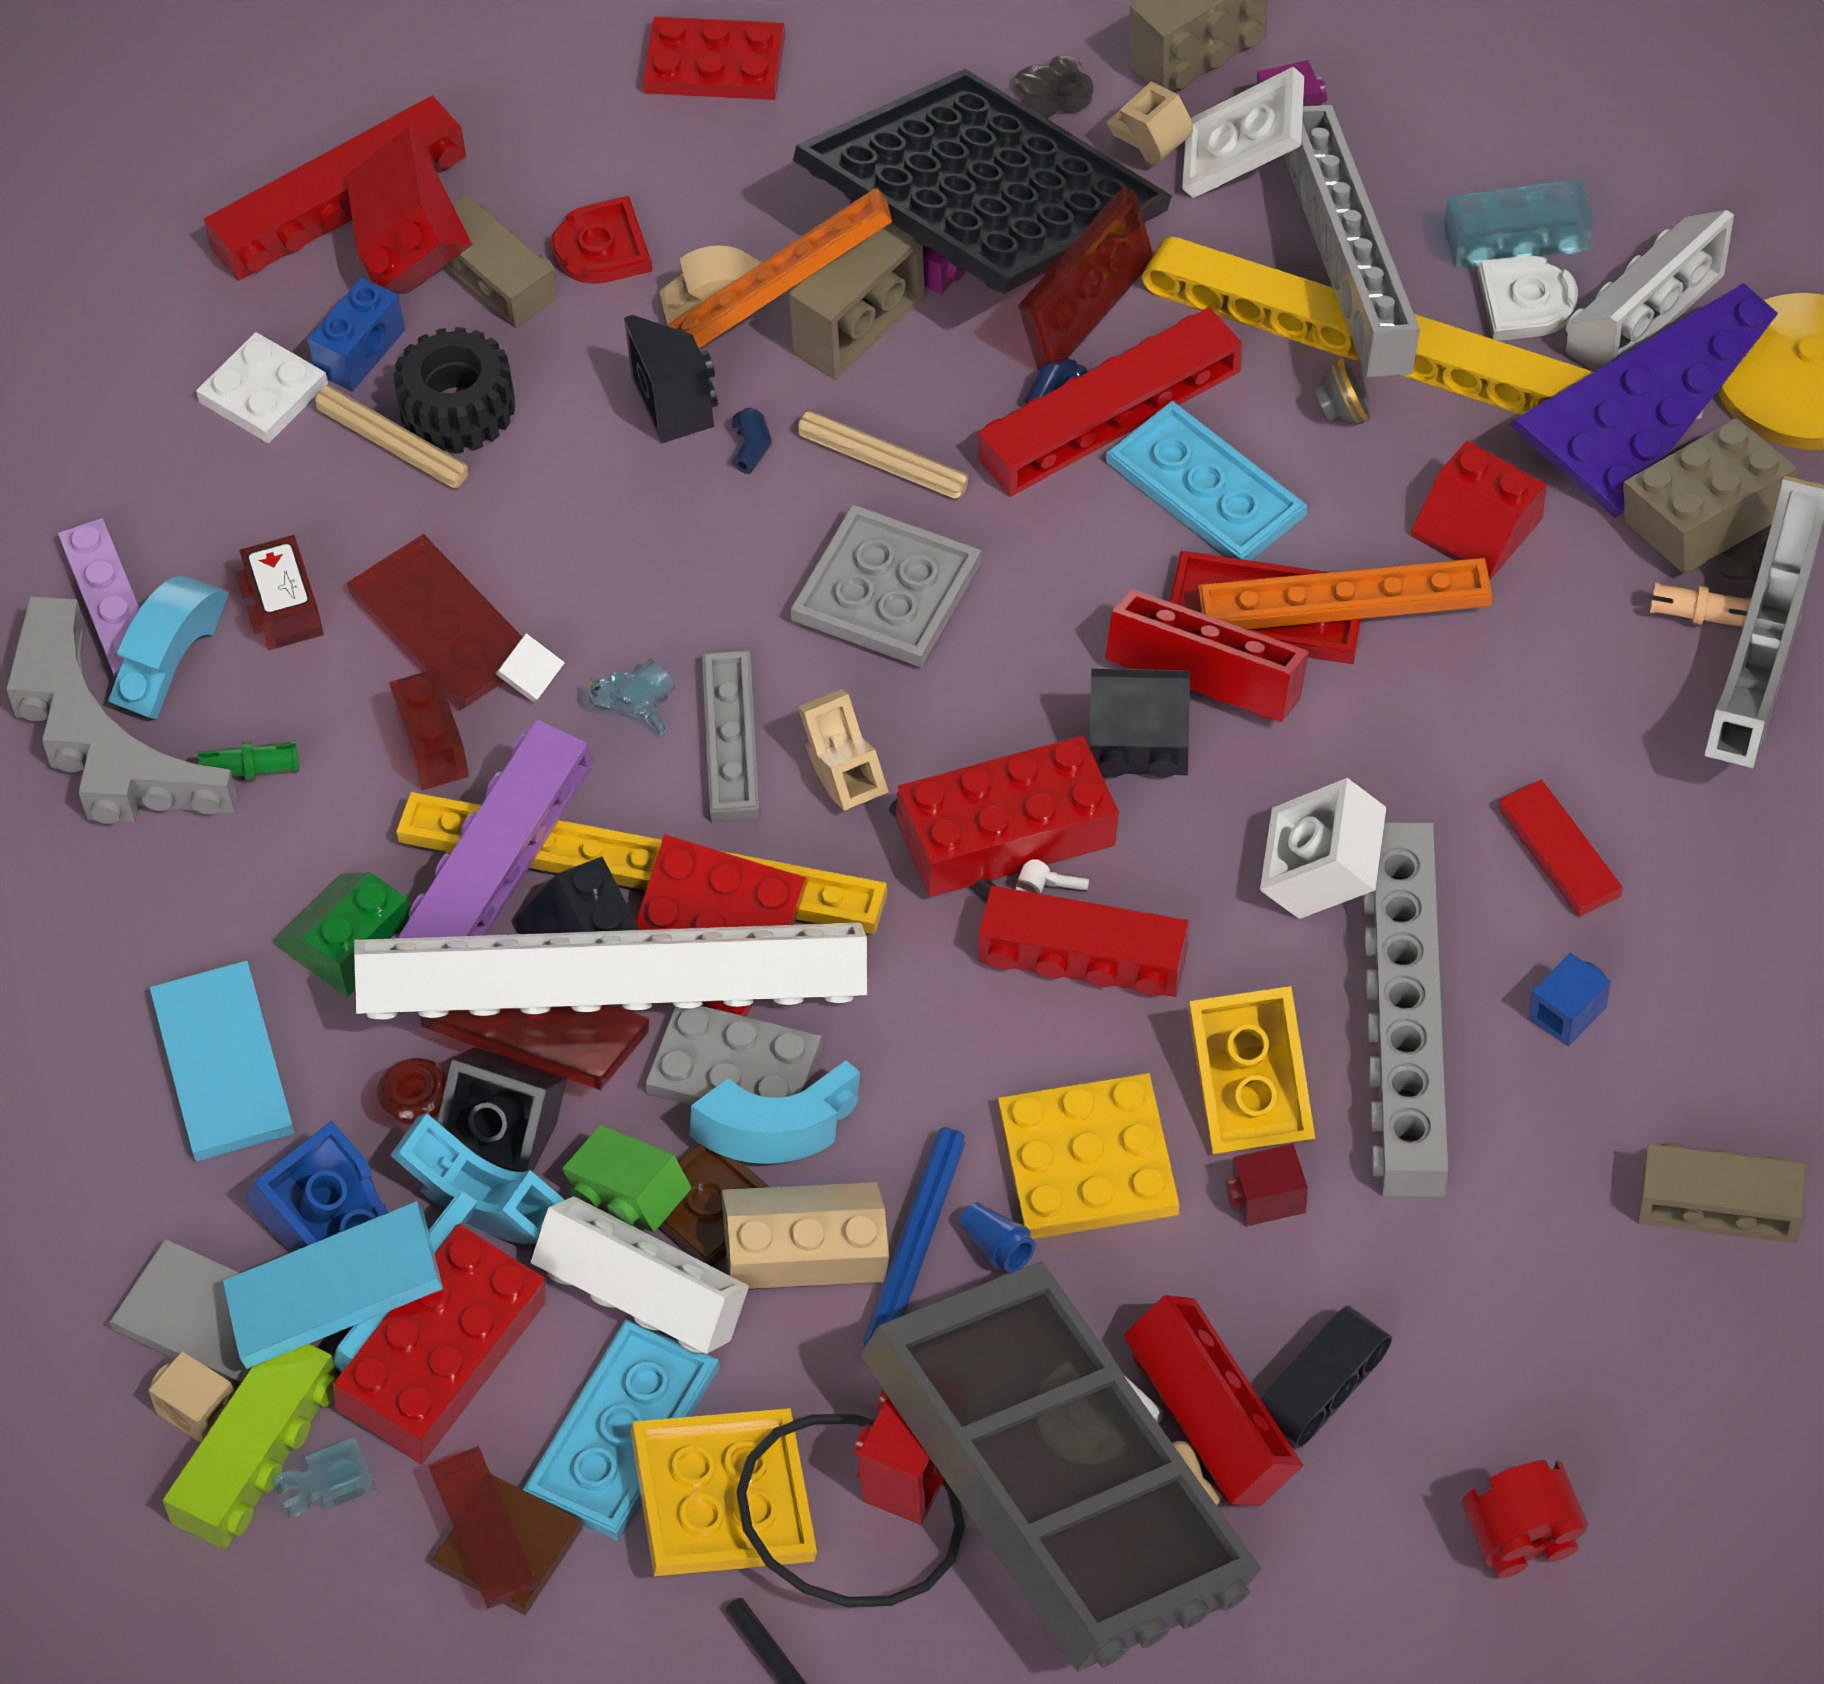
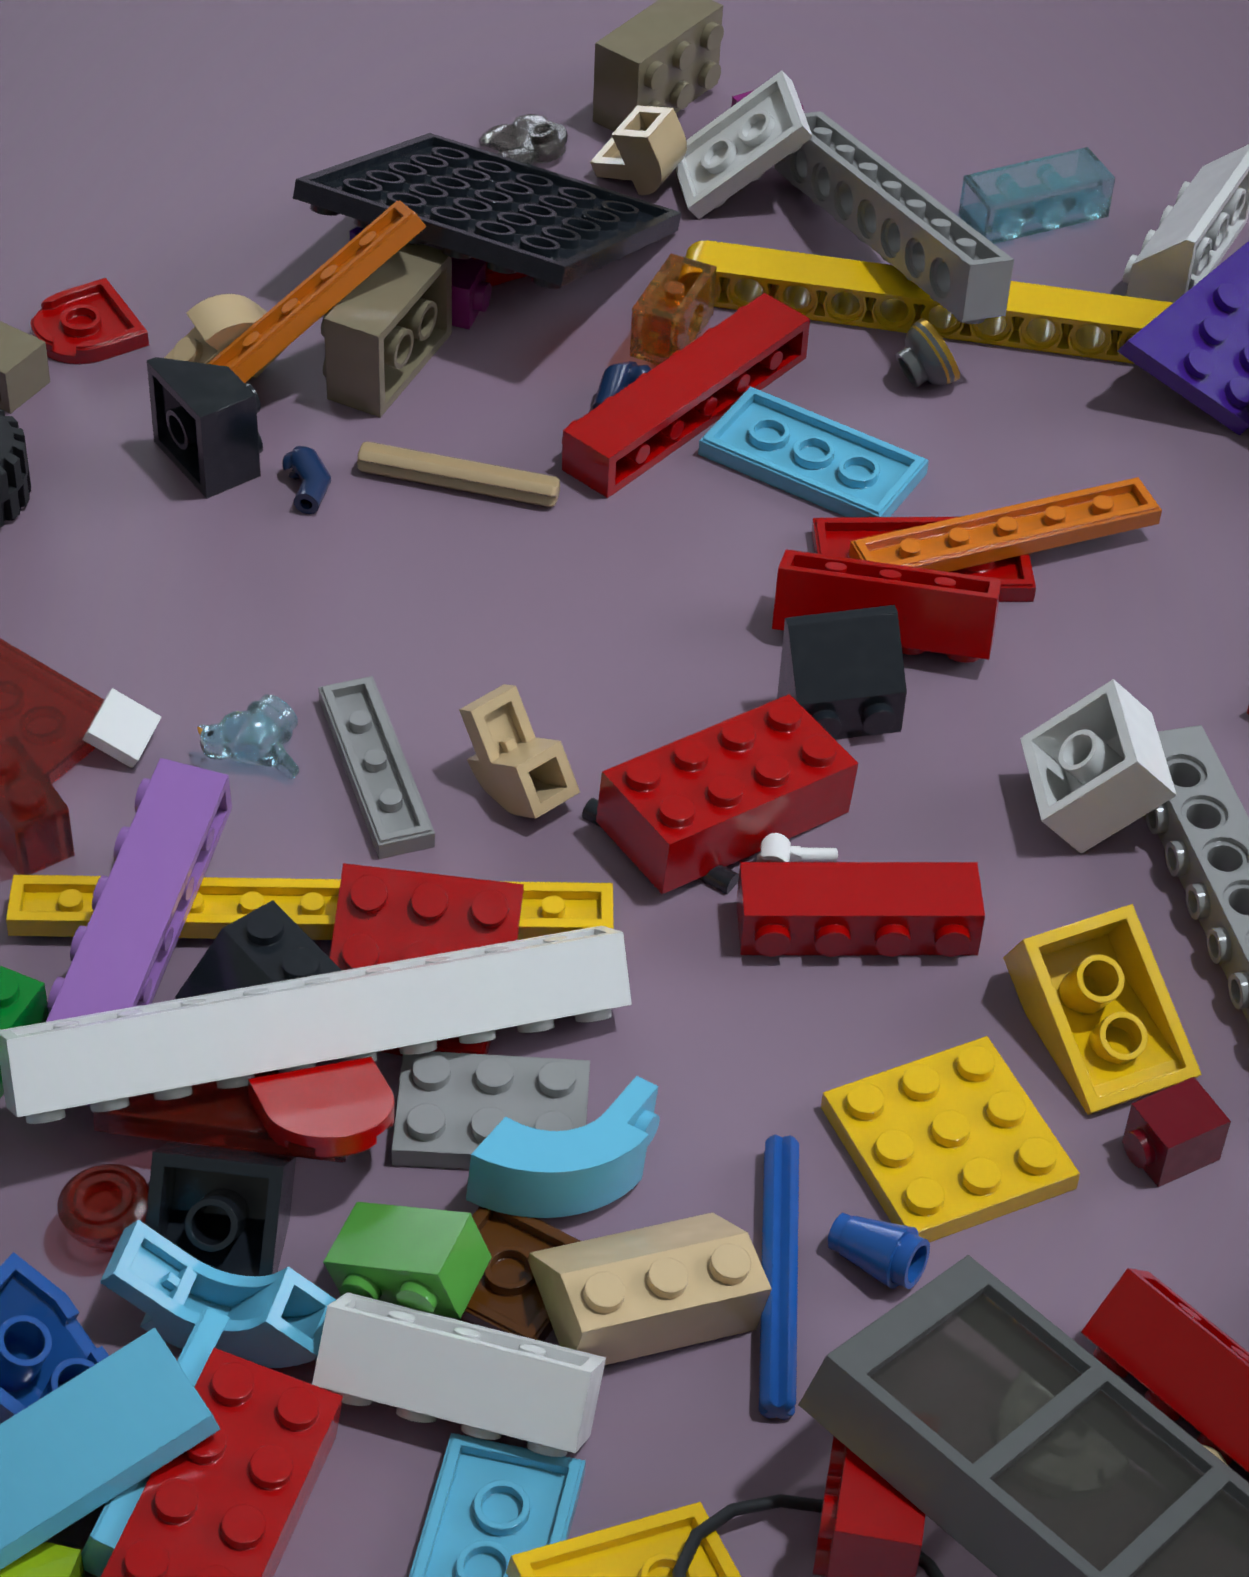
camera: 20 degrees left, 10 degrees down
(595, 1043) = (325, 1106): none -> red tile
(714, 58) = (161, 155): red plate -> none
(886, 585) = (506, 593): light grey plate -> none
(1087, 280) = (621, 279): clear red tile -> none
(1121, 311) = (672, 309): none -> clear orange brick
(1480, 508) = (1109, 433): red slope -> none
(1526, 296) = (1066, 256): white tile -> none

